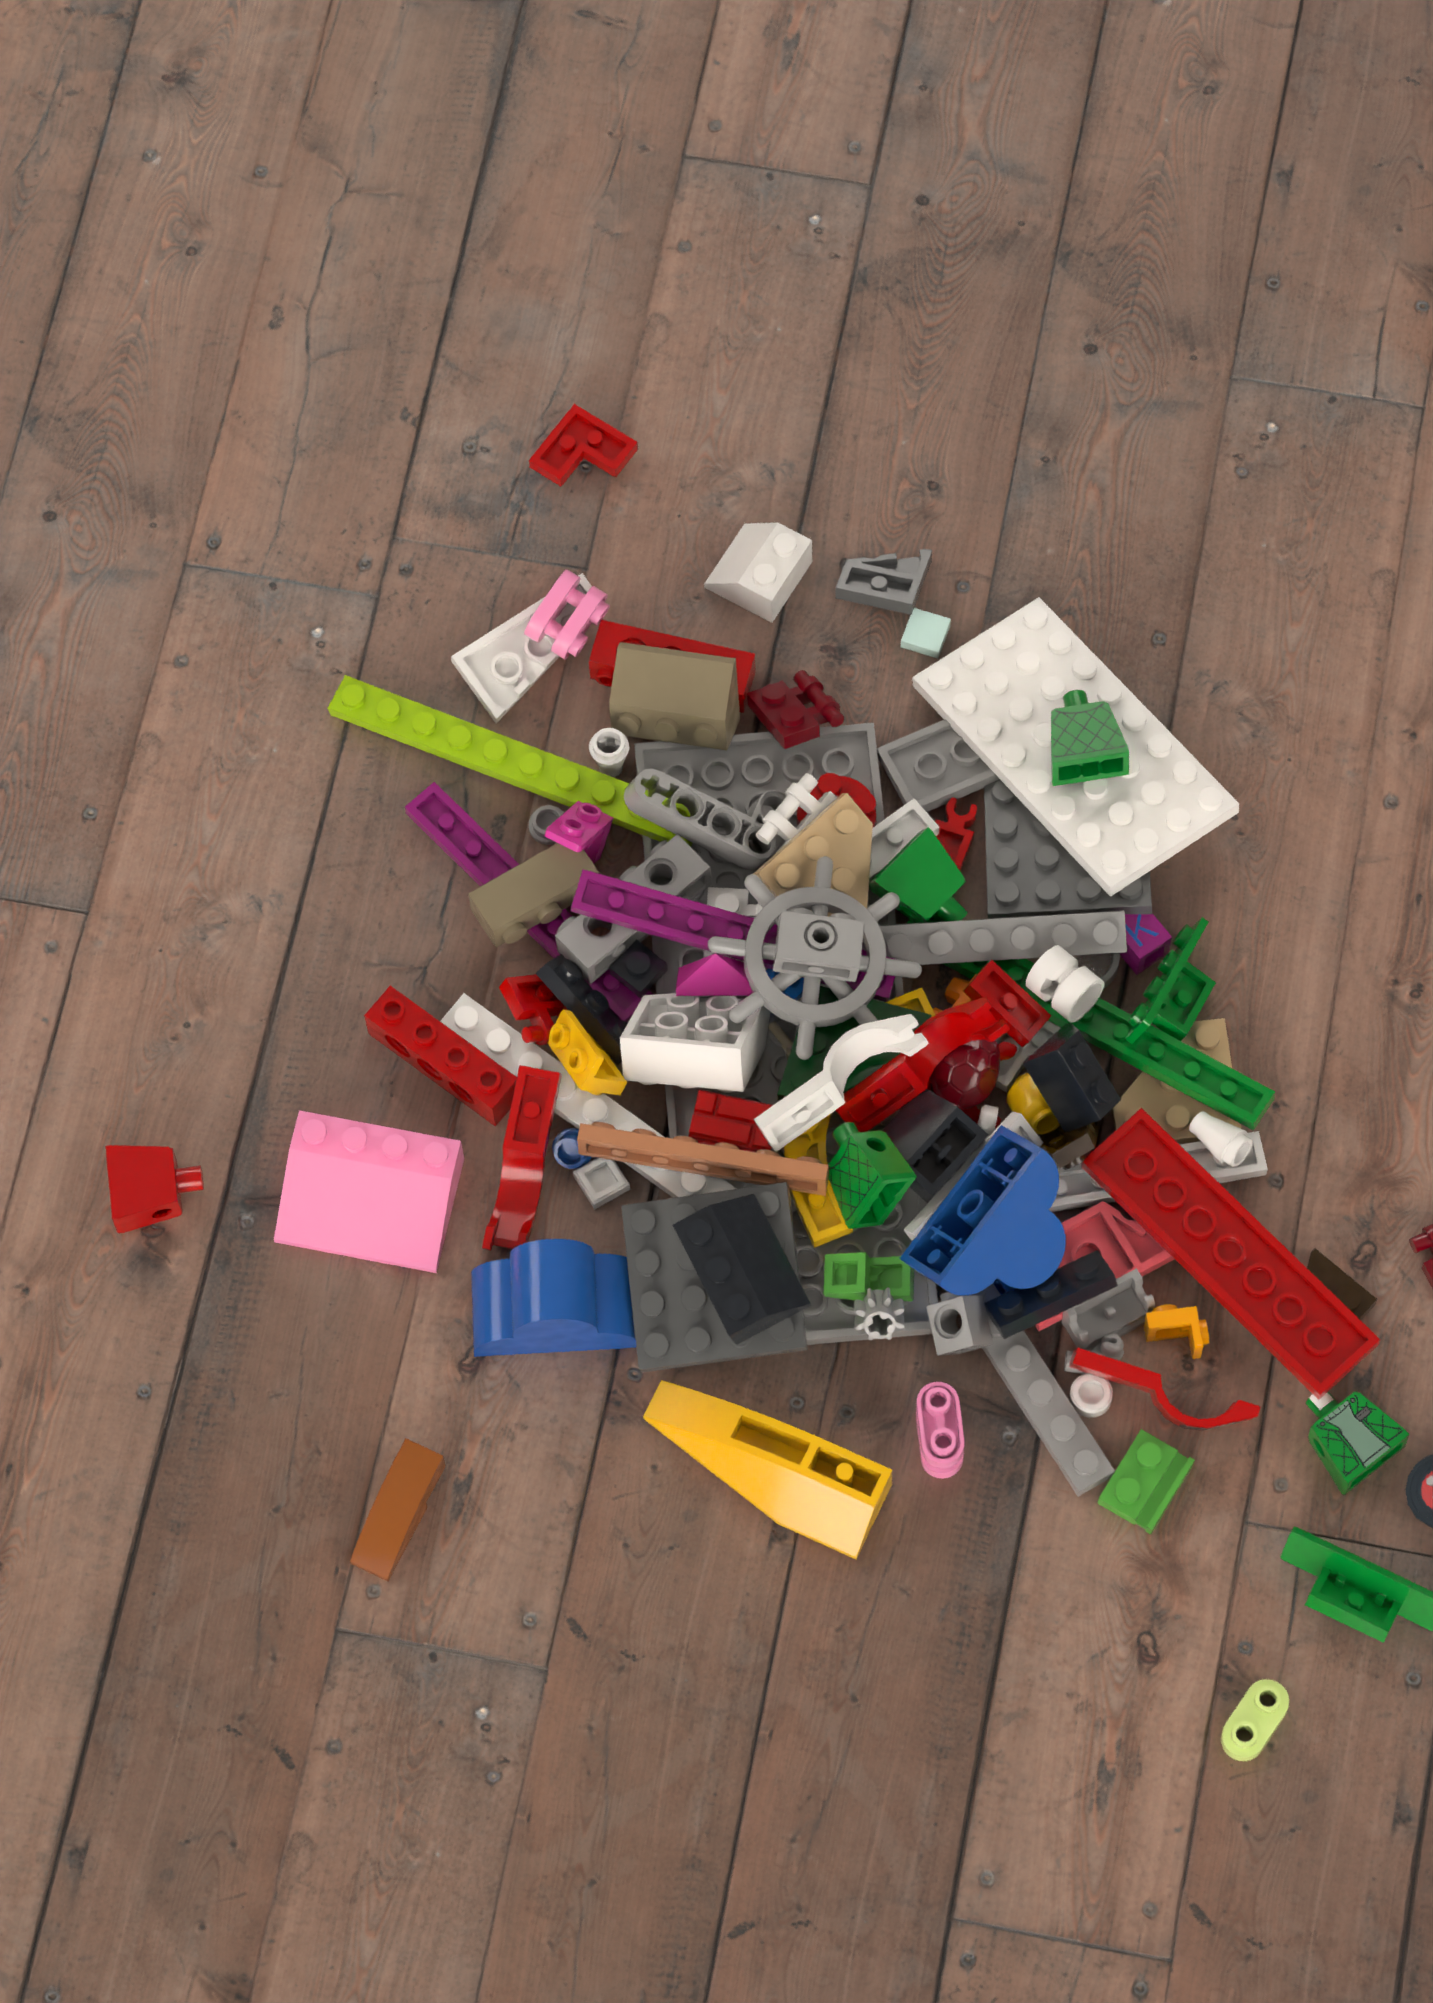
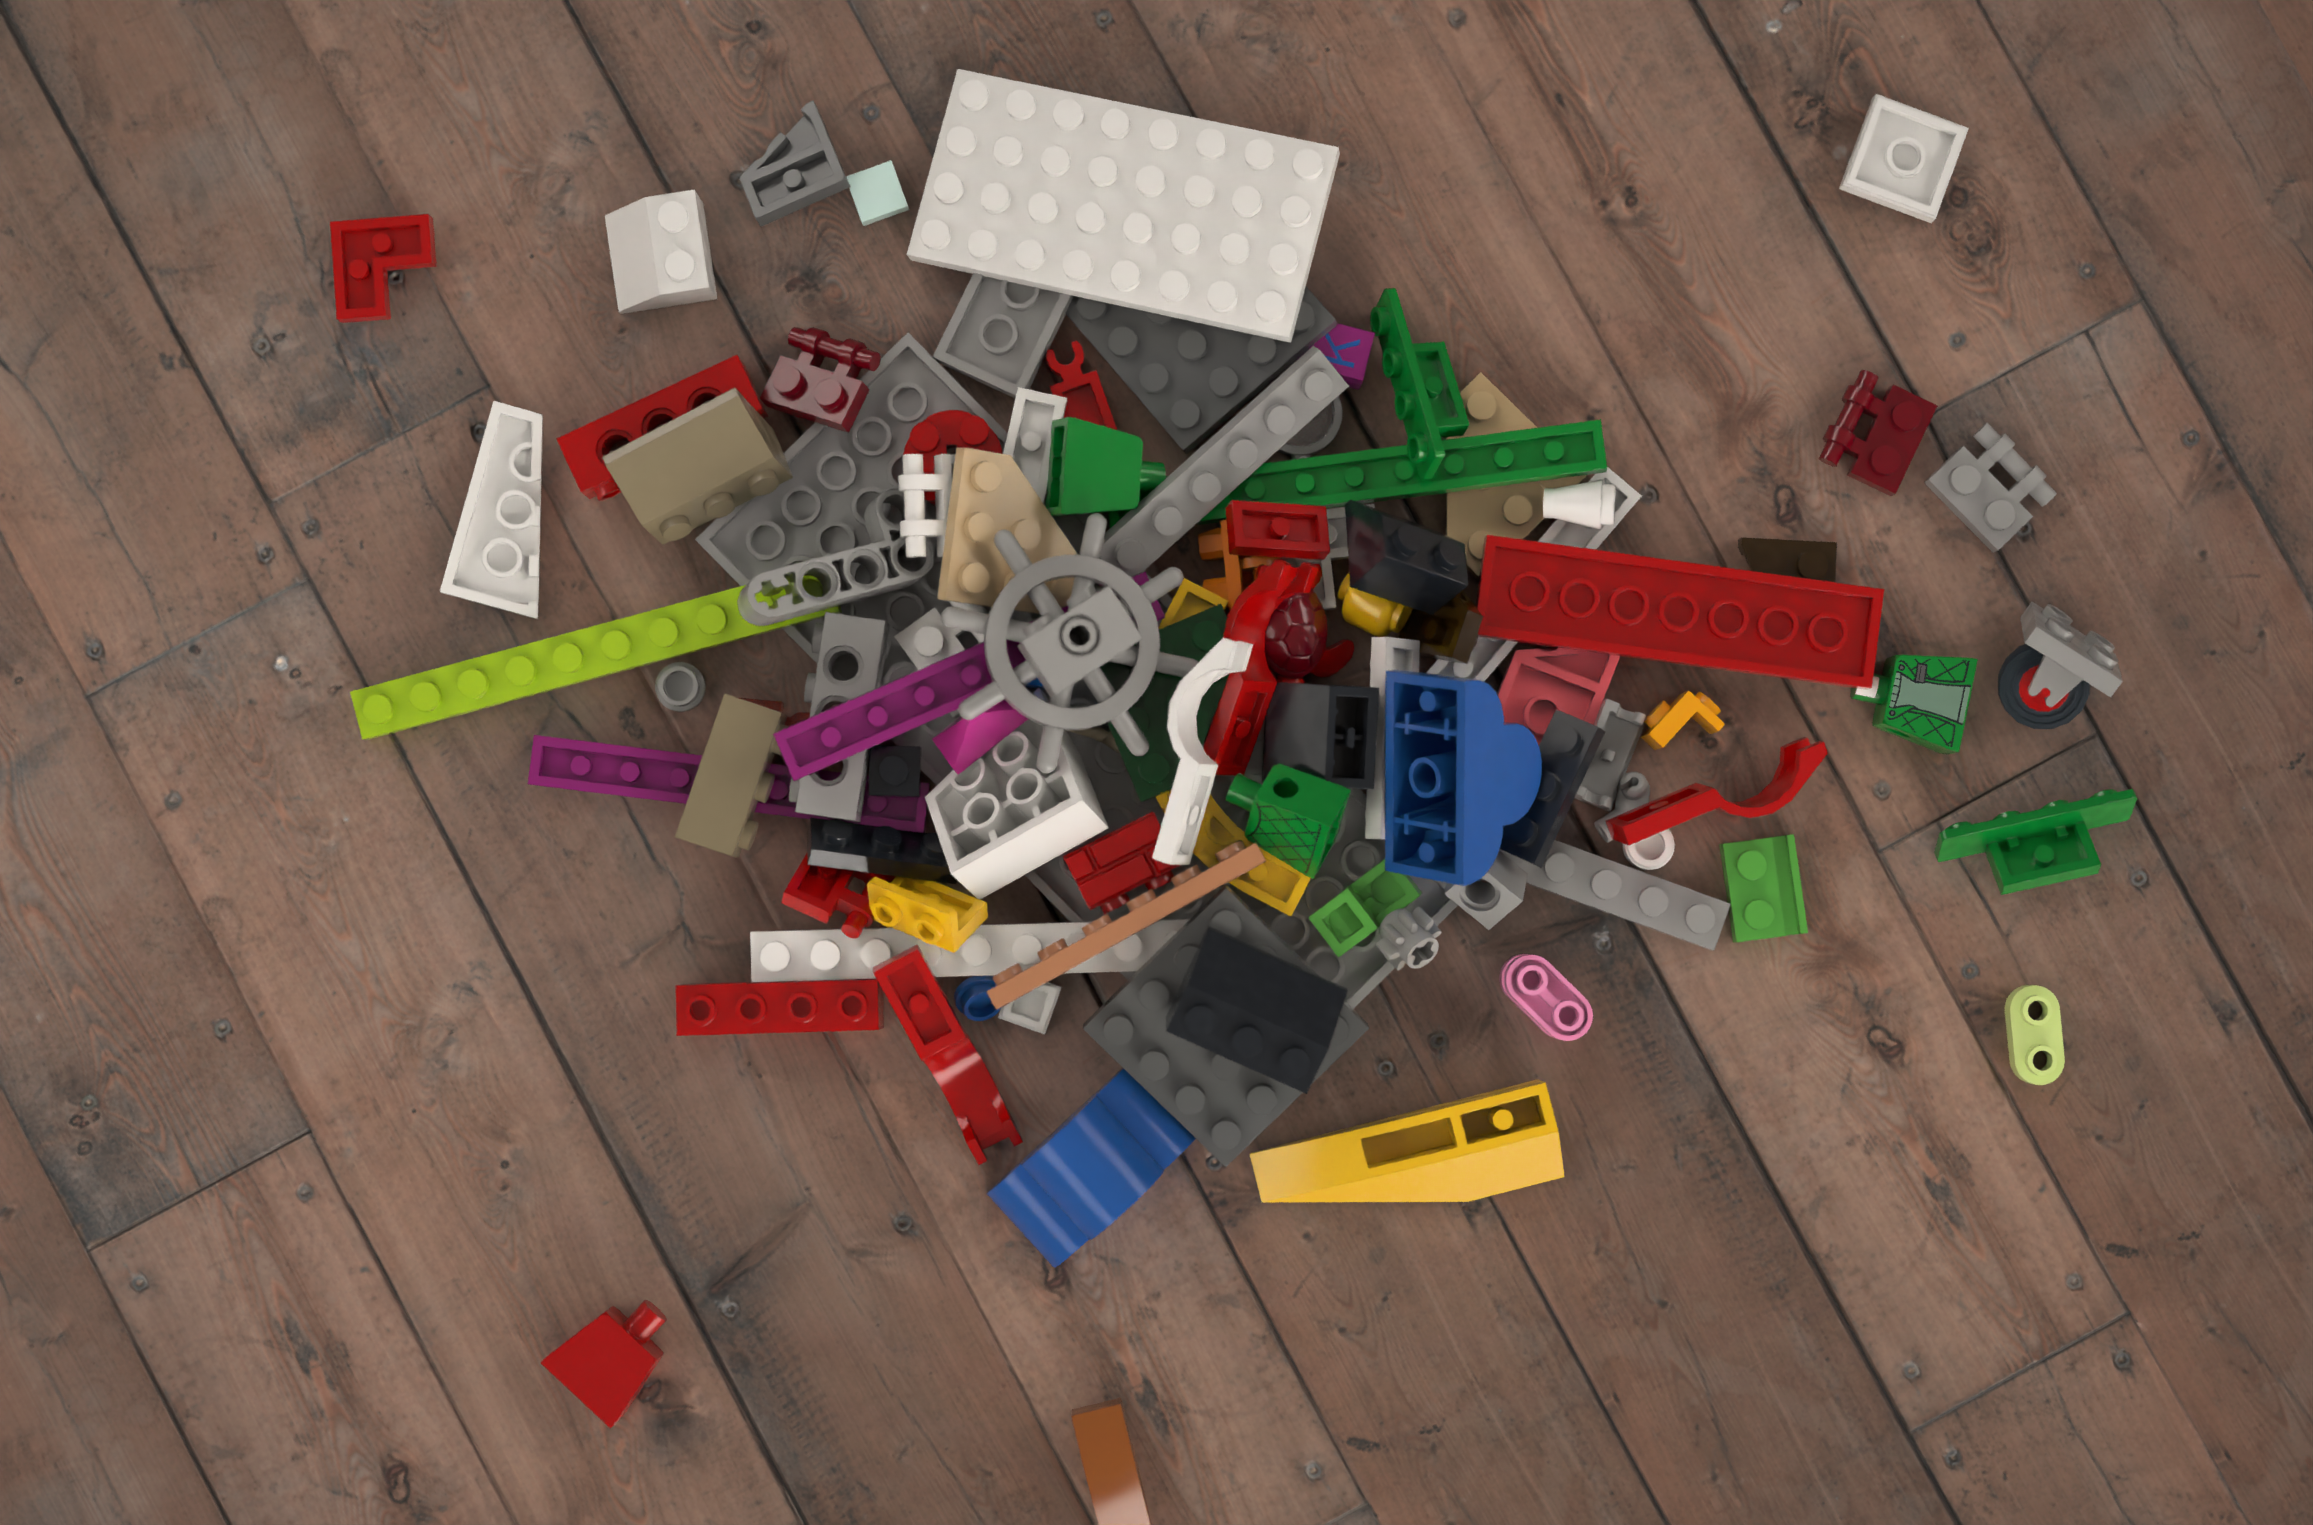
camera: 45 degrees left, 20 degrees up
(368, 1191) = (824, 1197): bright pink slope -> none
(570, 637) = (536, 436): bright pink brick -> none
(581, 828) = (724, 680): dark pink bracket -> none
(609, 750) = (668, 563): white cone -> none
(988, 1118) = (1350, 663): white tile -> none
(1060, 980) = (1320, 469): white wheel -> none
(1086, 741) = (1143, 200): green torso -> none

